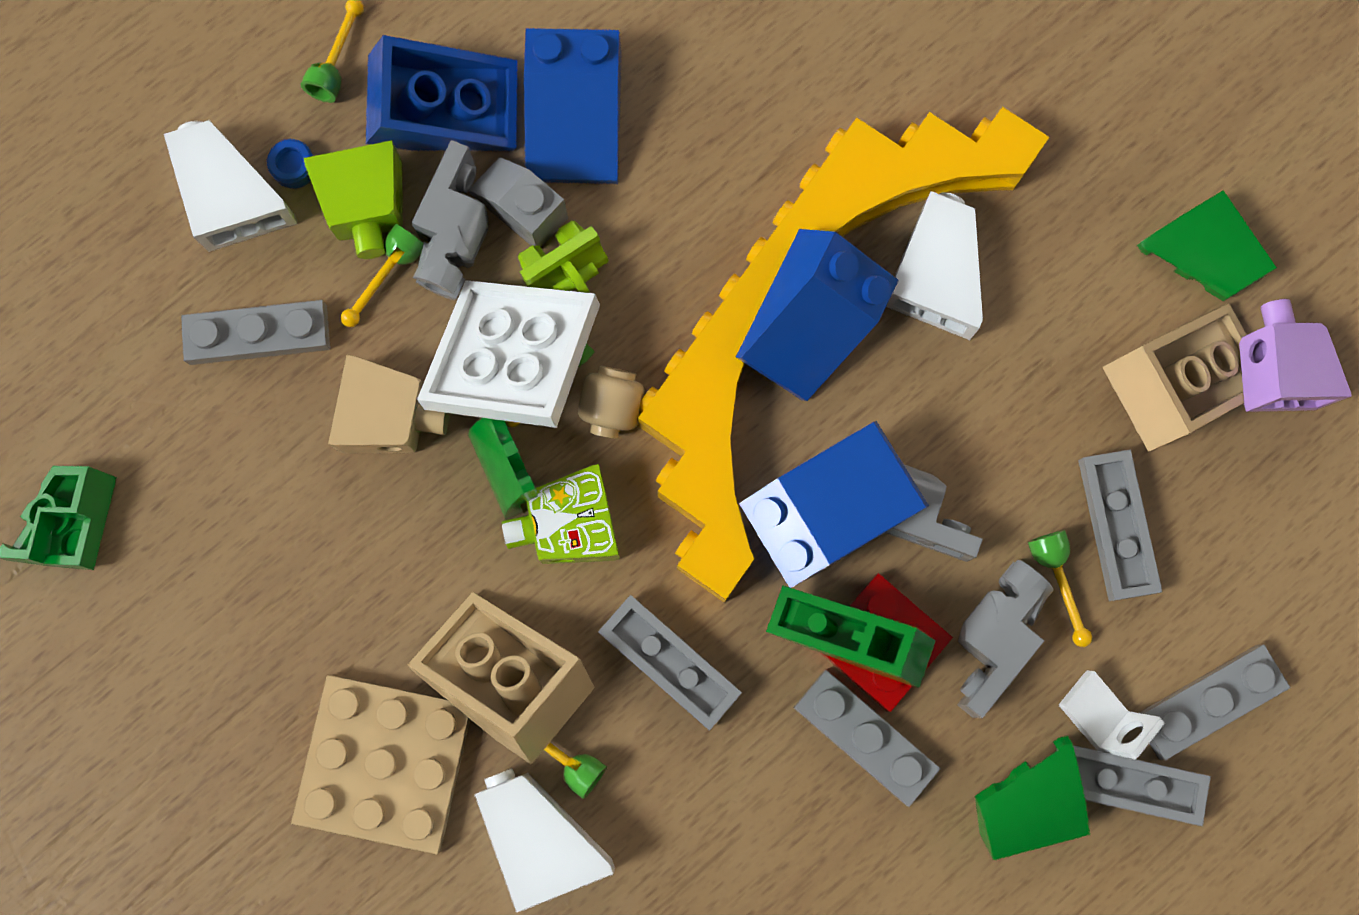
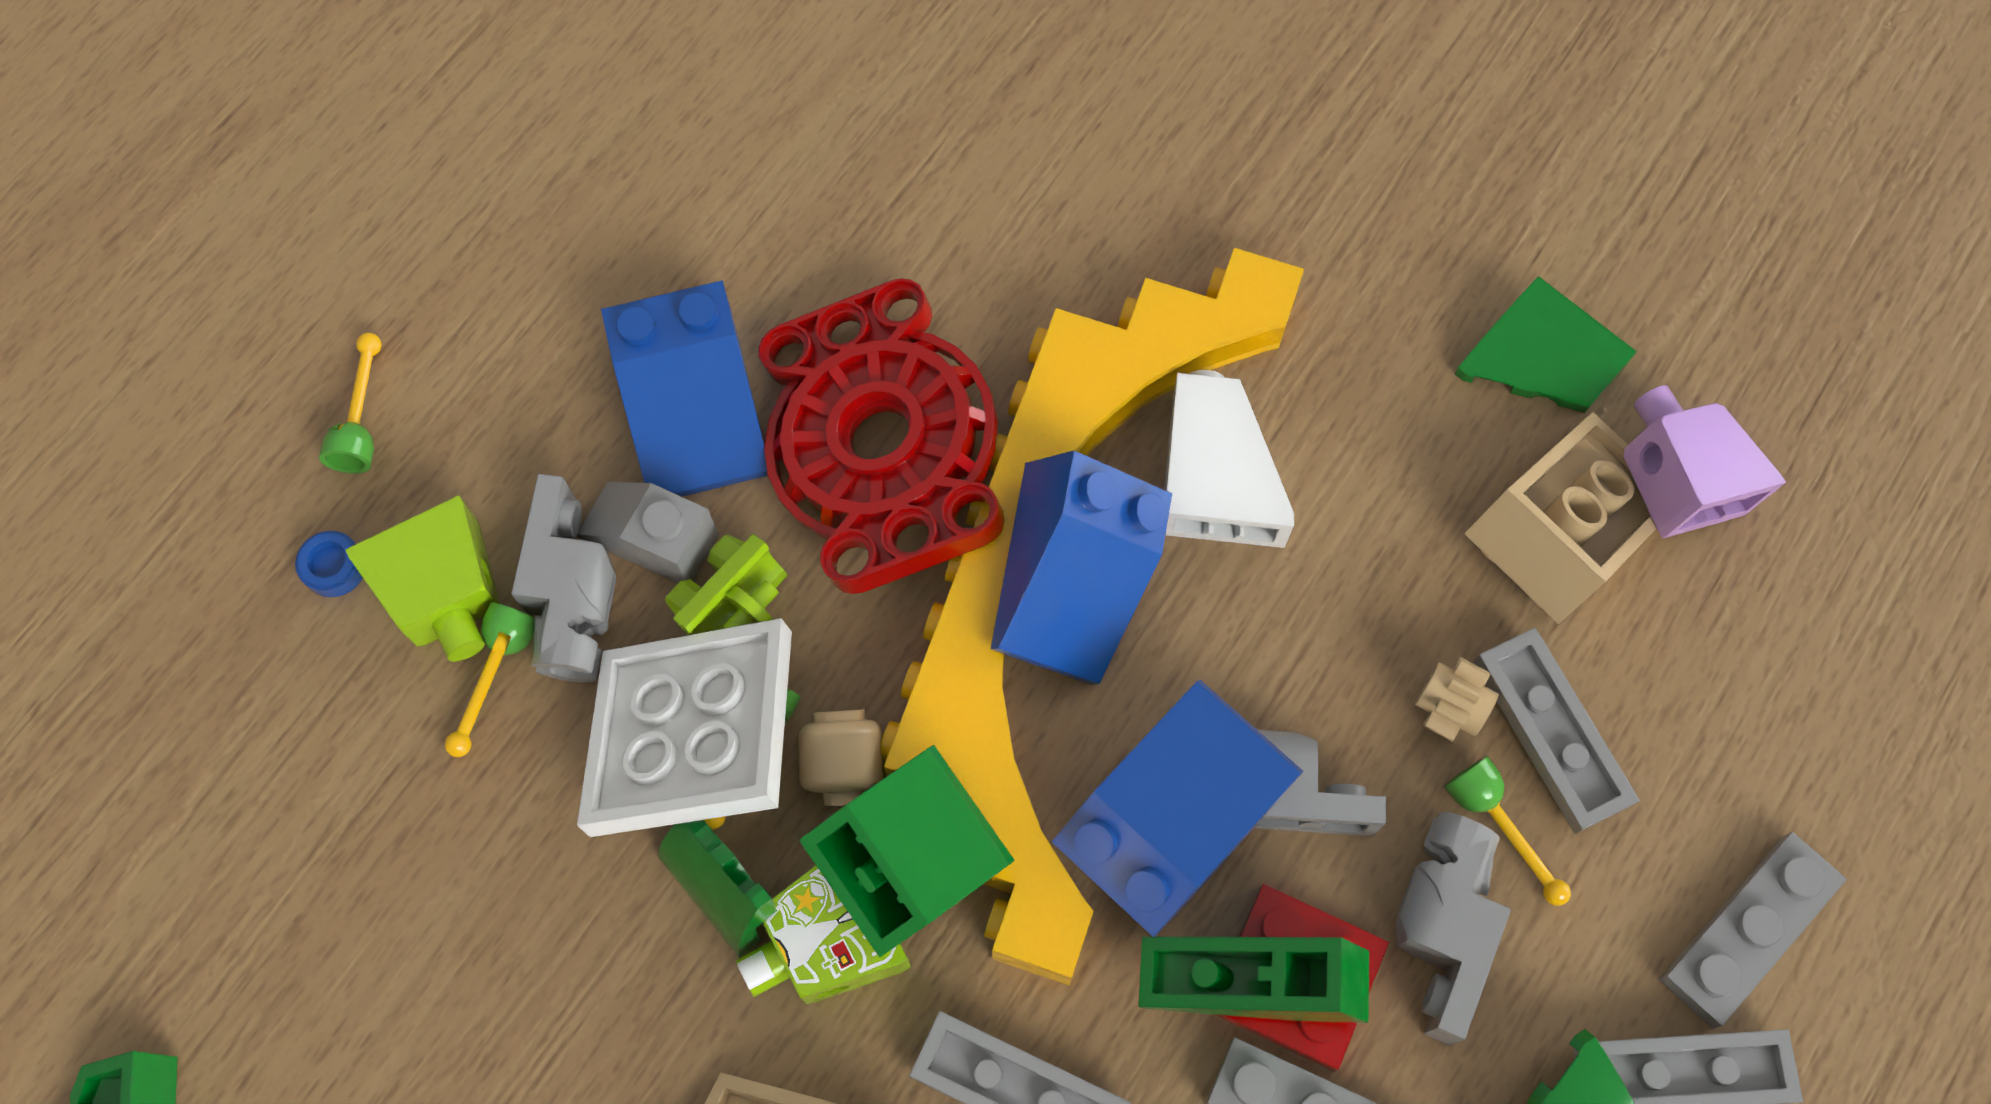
camera: 15 degrees left, 10 degrees down
(221, 189) = (243, 621): white slope -> none
(255, 332) = (330, 800): light grey plate -> none
(380, 411) = (530, 857): tan torso -> none
(439, 94) = (503, 421): blue slope -> none
(636, 482) = (906, 850): none -> green slope
(687, 131) = (840, 385): none -> red piece
(1056, 484) = (1456, 699): none -> tan gear
(1106, 719) = (1626, 994): white bracket -> none

